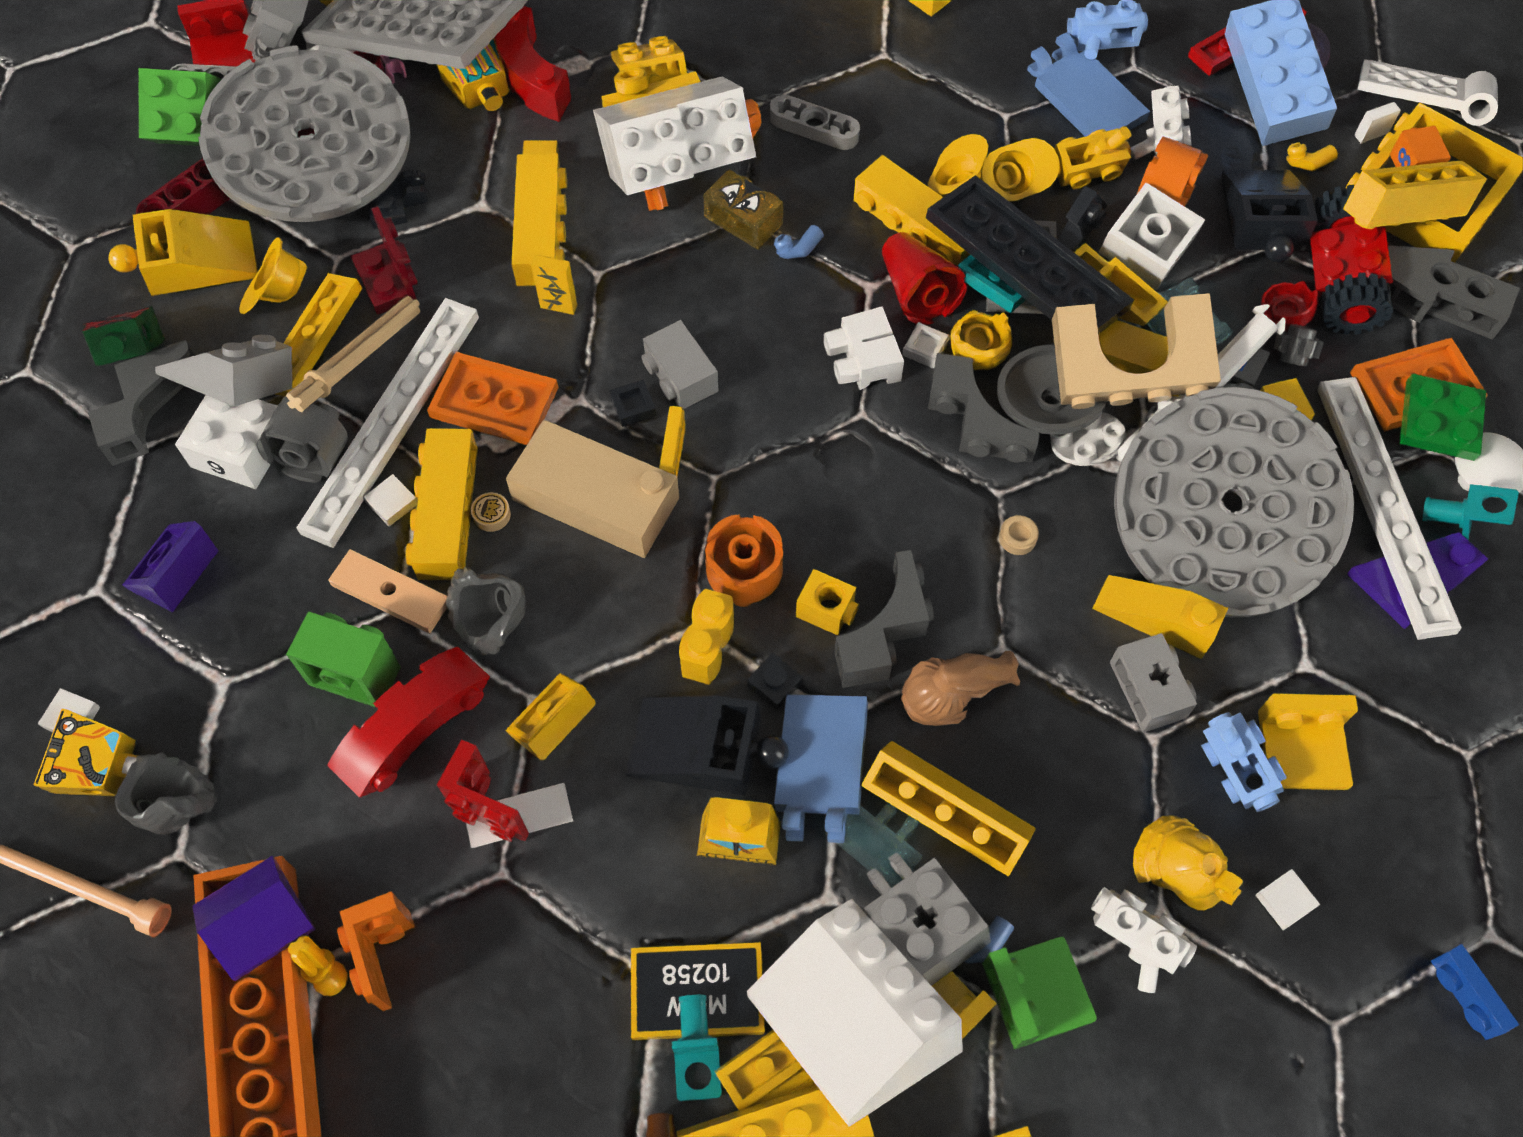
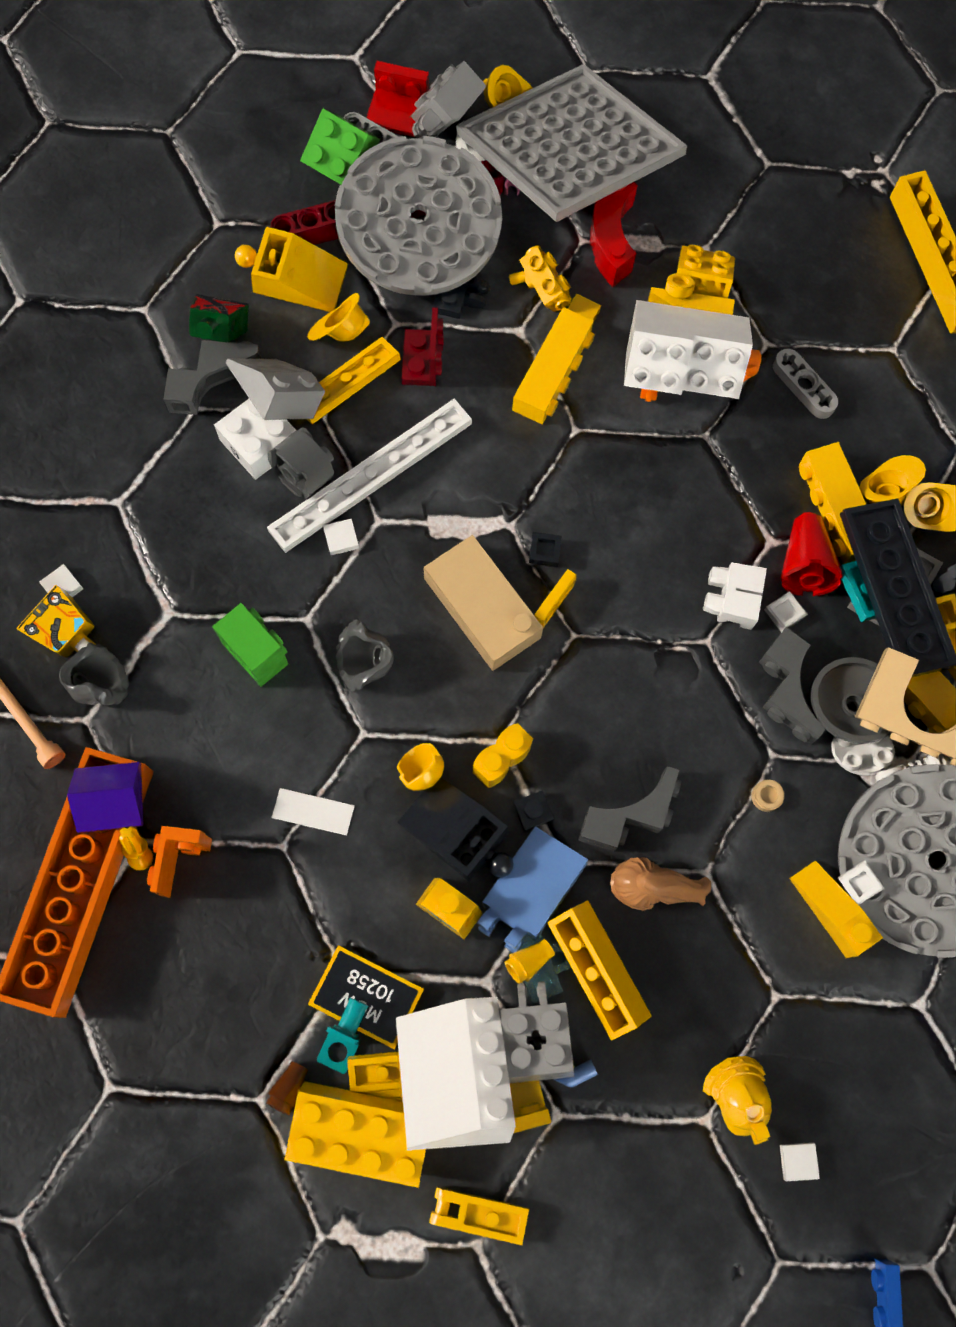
camera: 25 degrees right, 10 degrees up
(172, 565) = (173, 510): dark purple slope -> none
(320, 381) = (330, 429): tan axle -> none
(373, 581) = (297, 593): light nougat tile -> none
(405, 717) = (273, 707): red brick -> none
(443, 503) = (374, 560): yellow brick -> none
(464, 789) = (289, 773): red bracket -> none
(473, 136) = (542, 275): none -> yellow brick
(479, 82) = (572, 230): yellow torso -> none
(490, 511) = (404, 581): tile -> none
(492, 398) = (449, 495): orange plate -> none
(551, 716) = (369, 754): yellow slope -> none
(554, 284) = (535, 428): yellow tile -> none
(620, 695) = (421, 767): none -> yellow hair
(680, 365) = (594, 537): light grey brick -> none
(743, 209) = (709, 432): clear yellow brick -> none
(744, 558) = (566, 698): orange brick -> none
(798, 248) = (733, 484): medium blue arm -> none
(821, 588) = (600, 761): yellow brick -> none
(863, 842) = (528, 961): none -> yellow cone
(982, 338) = (827, 631): yellow hair -> none
(1038, 991) = (589, 1126): bright green bracket -> none
(1152, 940) = (683, 1132): white brick -> none
(1153, 682) = (790, 973): light grey brick -> none
(1170, 565) = (861, 882): none -> white tile
(1239, 752) = (827, 1043): light blue brick -> none
(1309, 739) = (882, 1063): yellow bracket -> none

